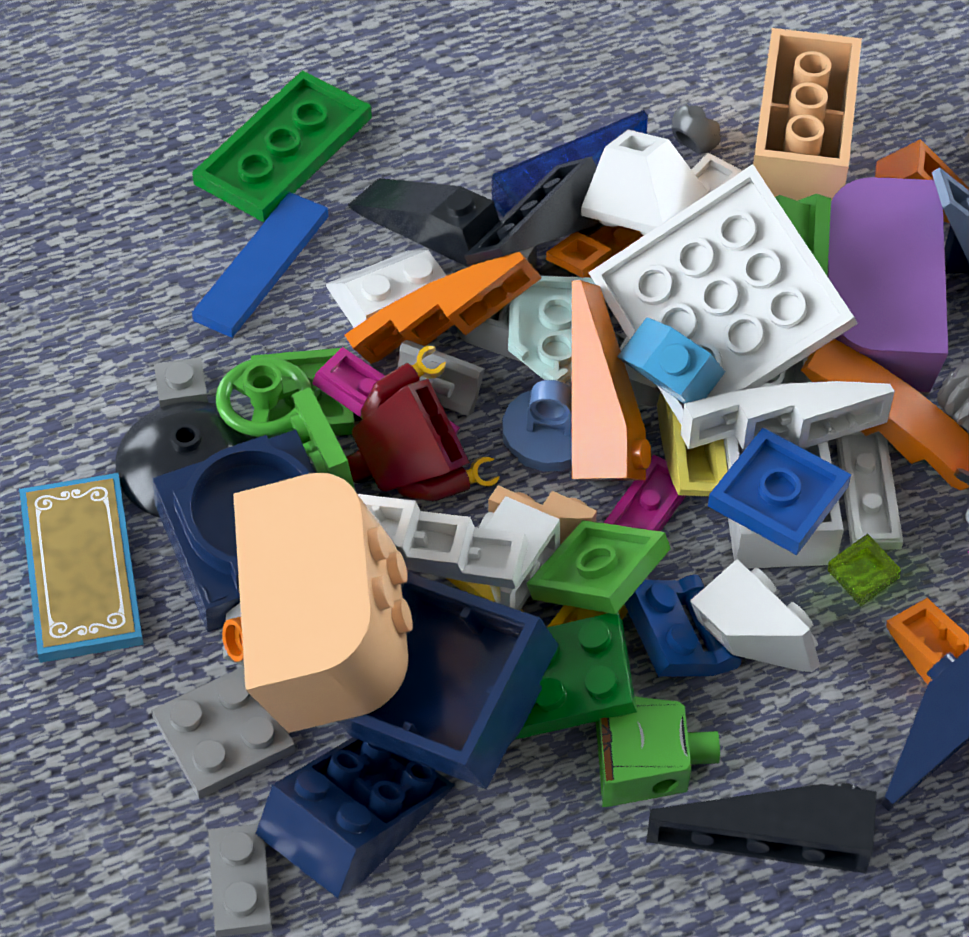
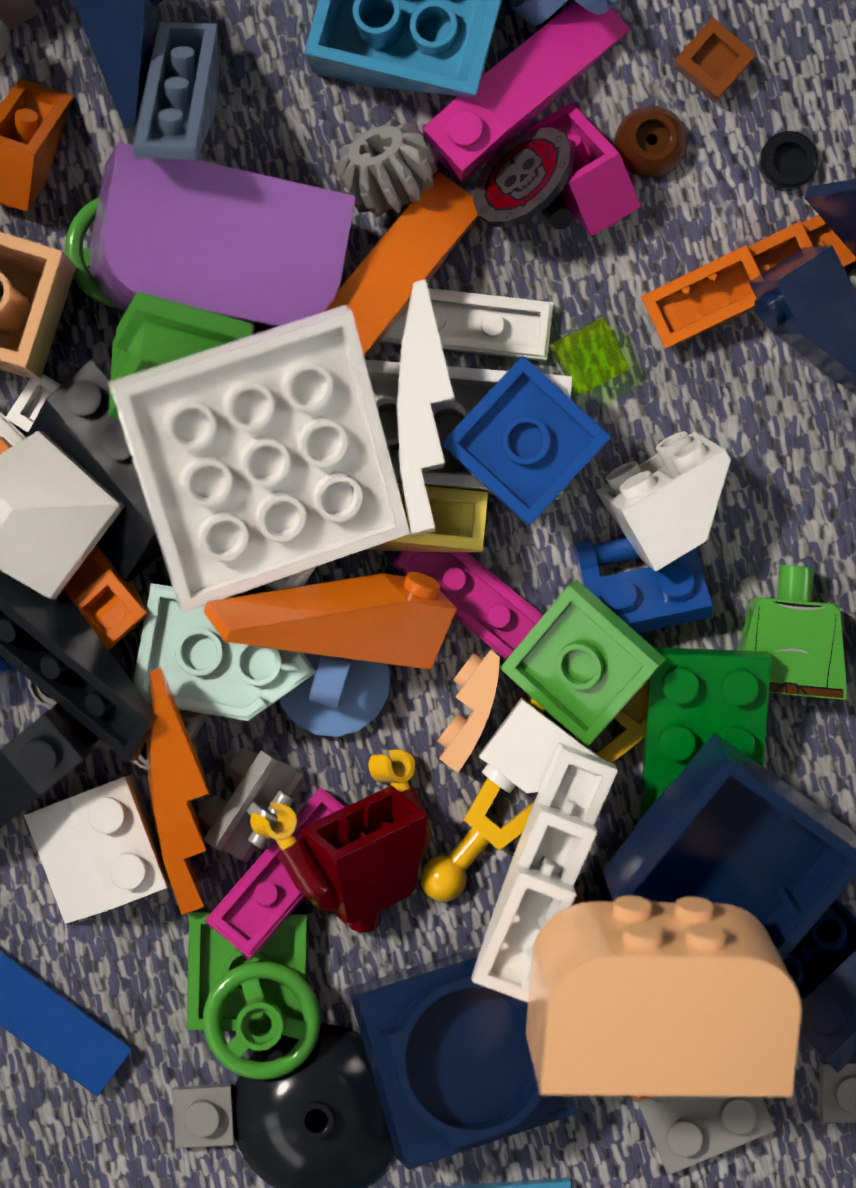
camera: 80 degrees left, 35 degrees up
(319, 437) = (388, 951): bright green plate -> none
(672, 361) = (344, 540): dark azure slope -> none

